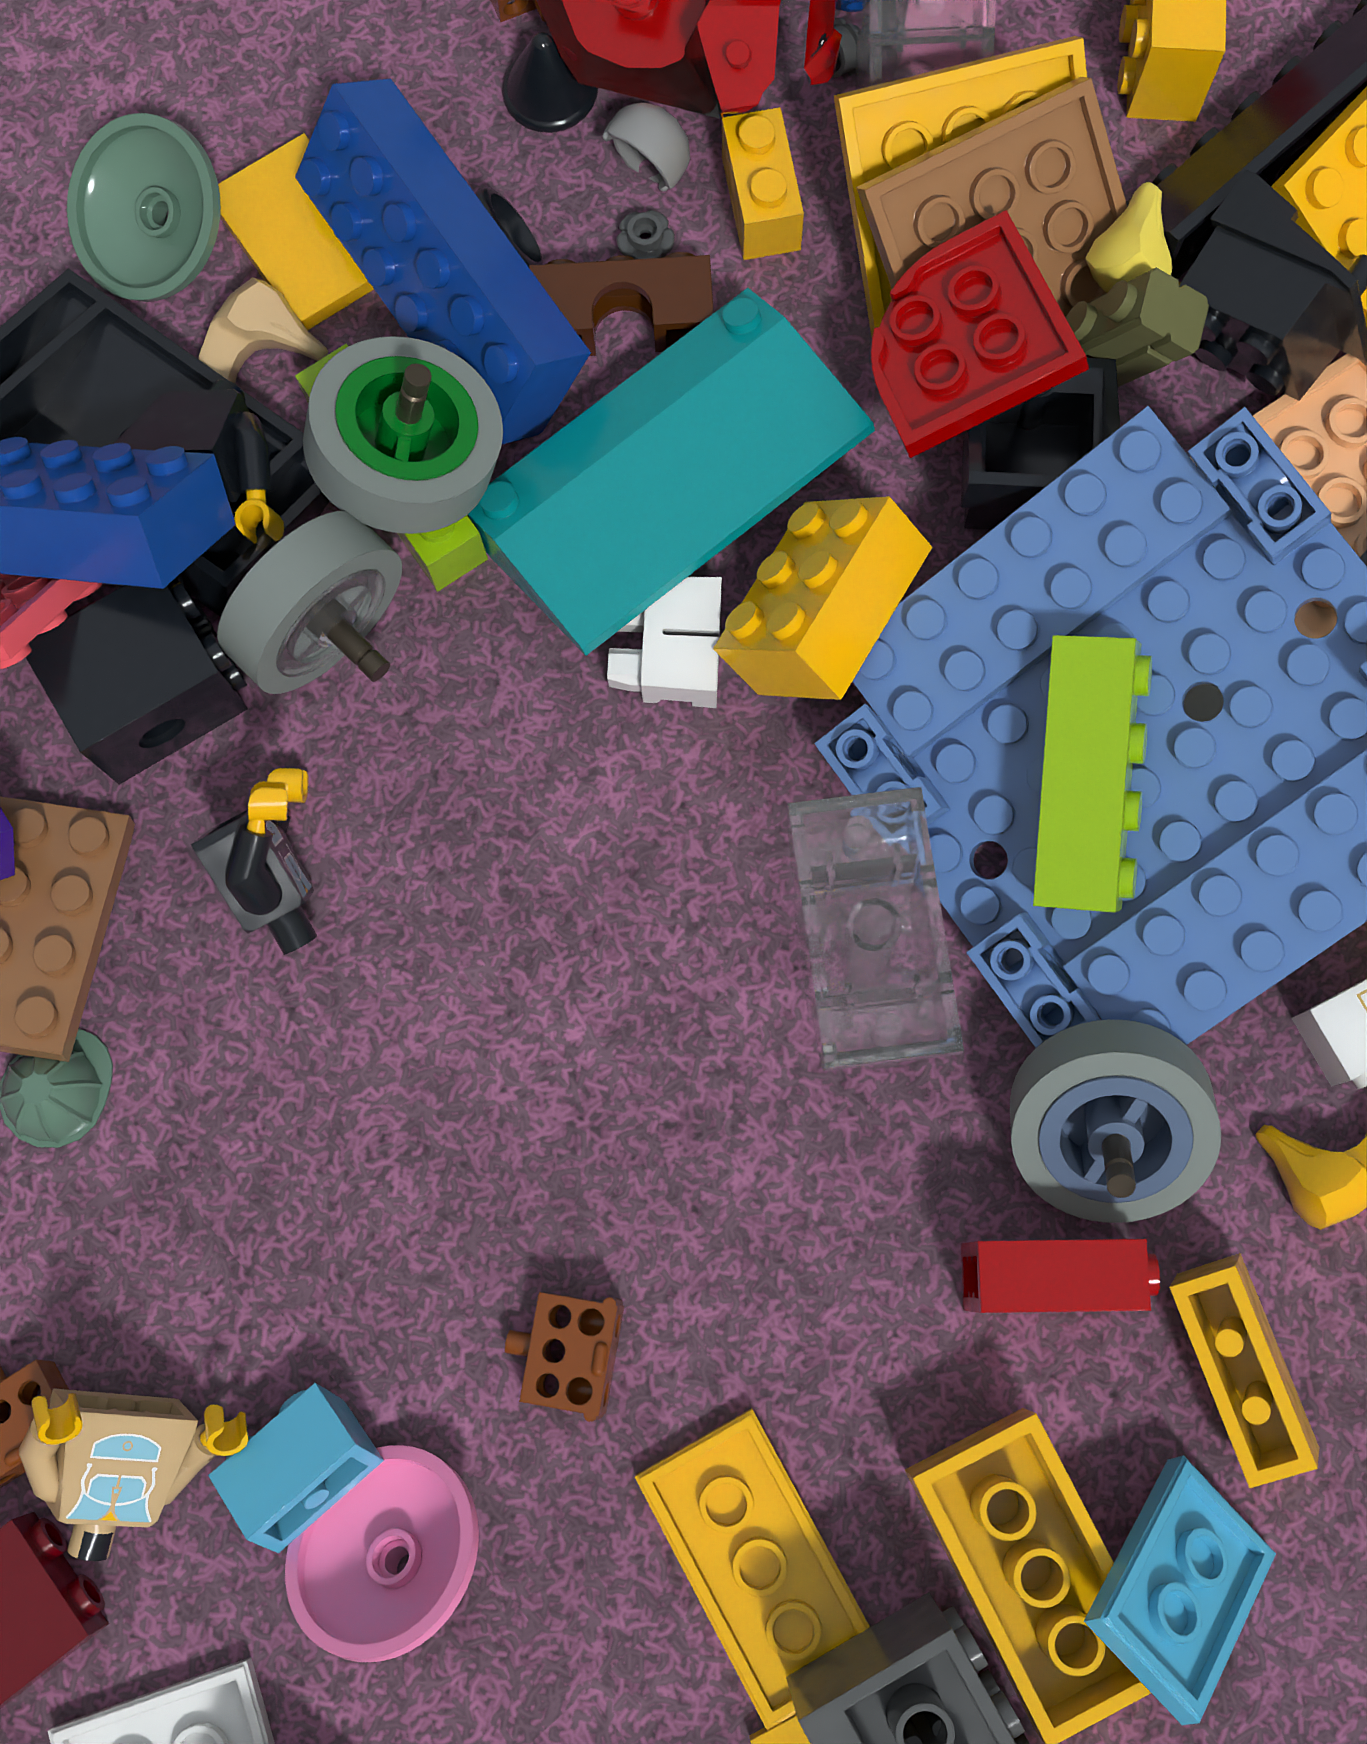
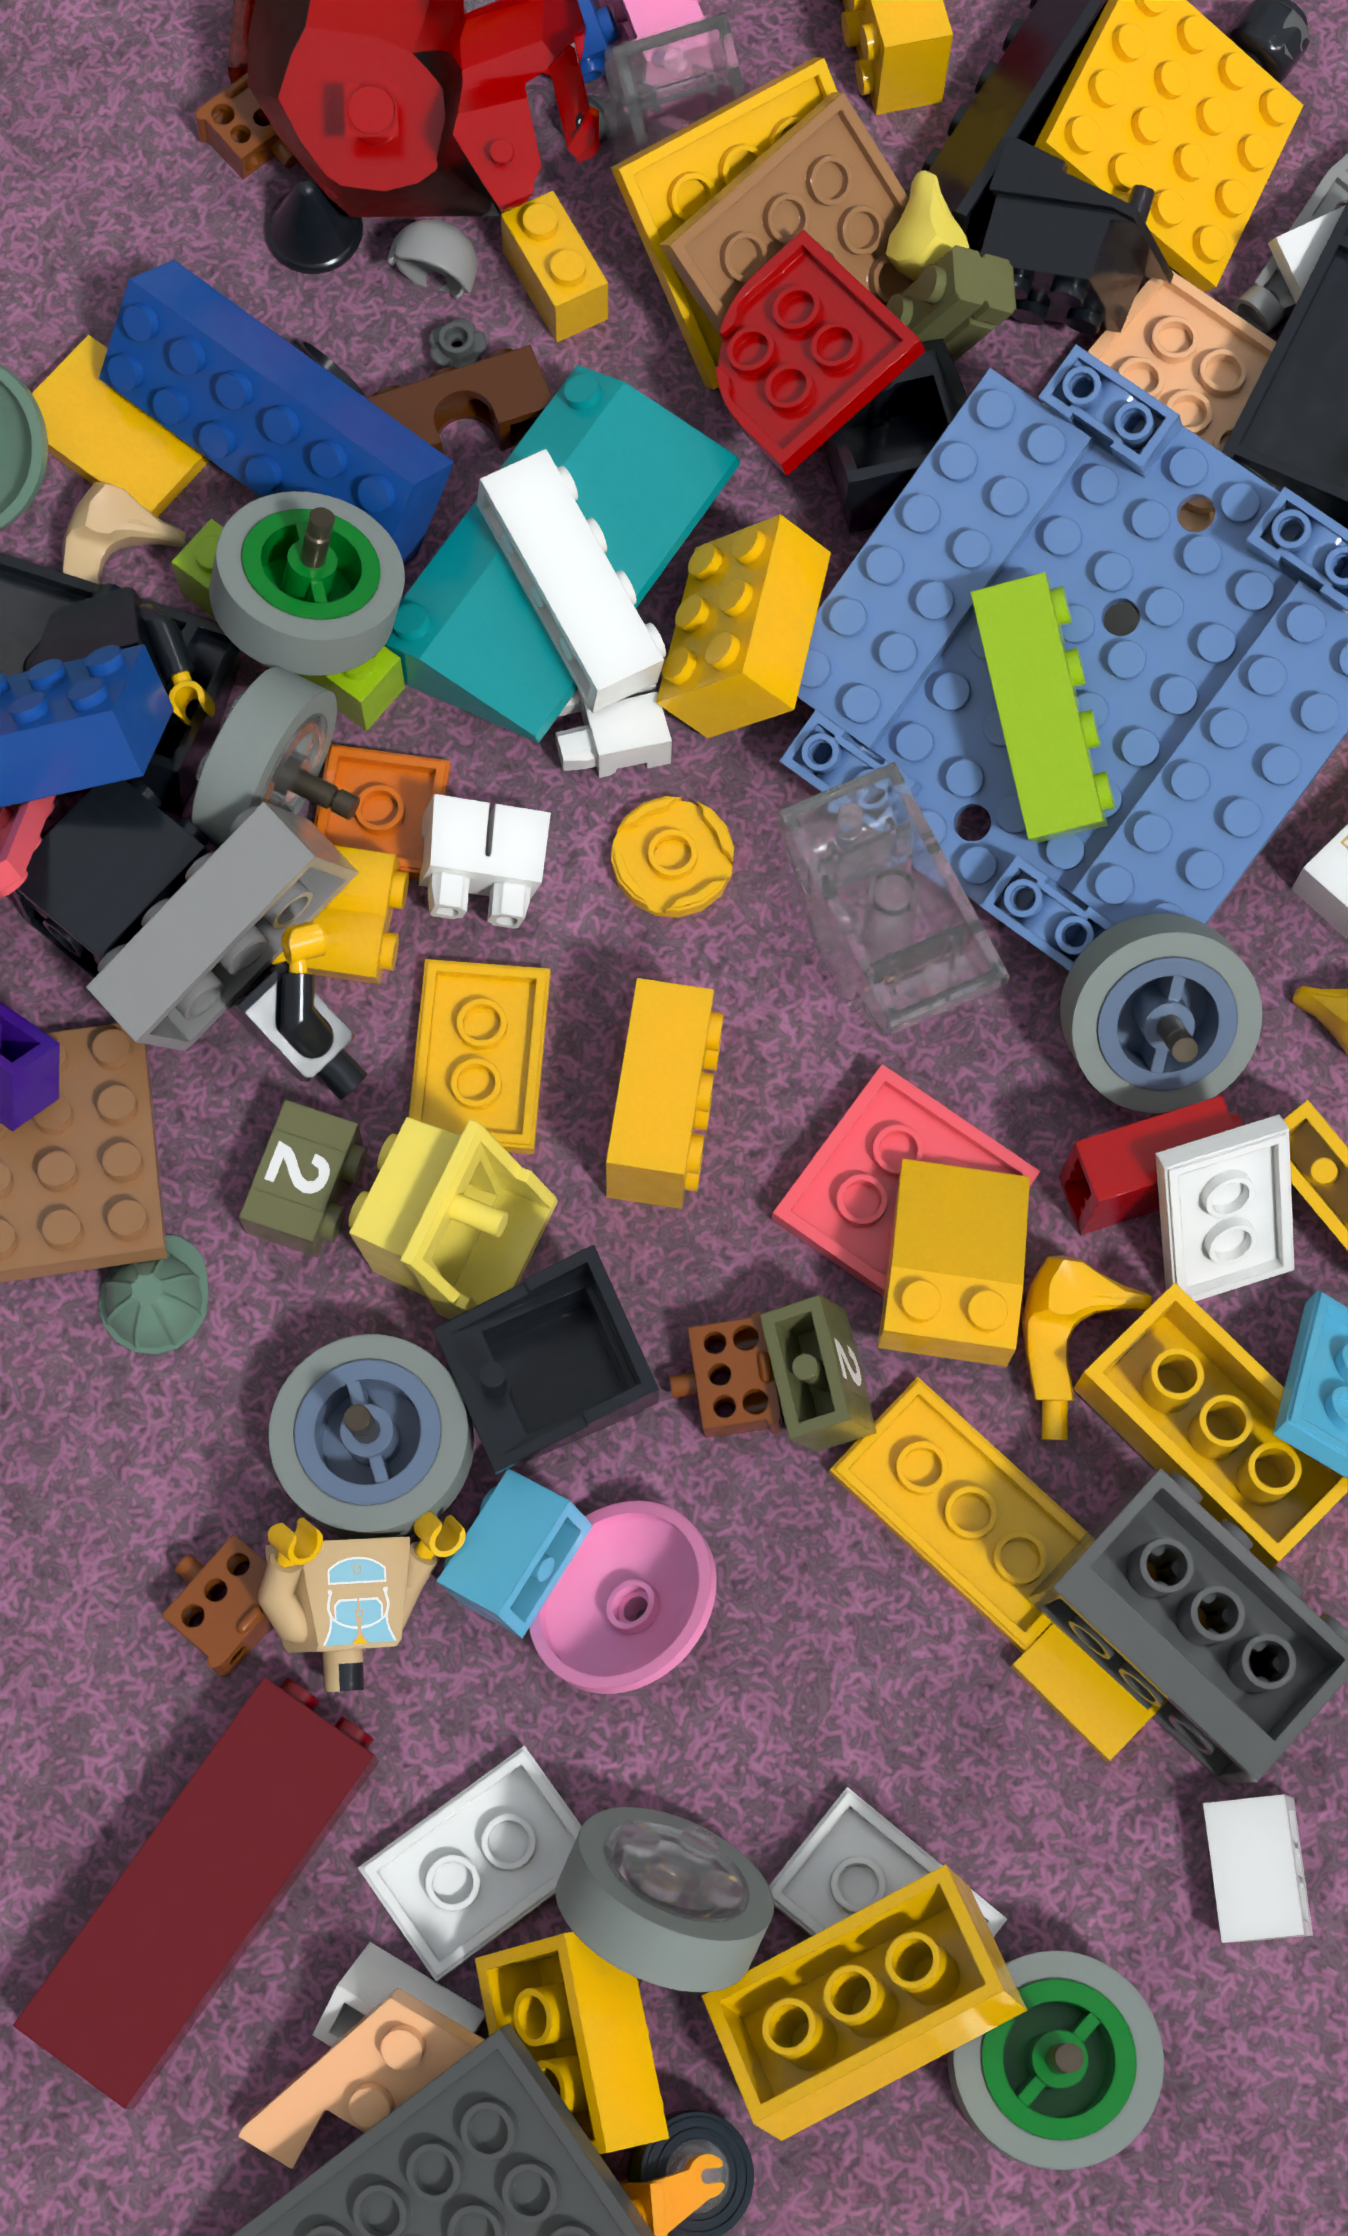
camera: 25 degrees left, 5 degrees down
(196, 1306) = (371, 1436): none -> wheel
(206, 754) = (220, 927): none -> light grey brick
(223, 1022) = (303, 1179): none -> olive brick
(339, 1117) = (450, 1215): none -> light yellow piece
(356, 772) = (360, 919): none -> yellow brick
(378, 1297) = (547, 1361): none -> black piece
(432, 676) = (392, 800): none -> orange tile
(435, 947) = (481, 1049): none -> yellow tile
(470, 746) = (482, 856): none -> white hips
(588, 1047) = (663, 1094): none -> yellow brick
(649, 1383) = (817, 1373): none -> olive brick
(663, 502) = (570, 579): none -> white brick
(686, 825) = (672, 878): none -> yellow tile
(801, 1220) = (851, 1185): none -> coral plate
(824, 1312) = (955, 1263): none -> yellow slope
(916, 1380) = (1056, 1302): none -> yellow animal
(1114, 1352) = (1227, 1209): none -> white tile

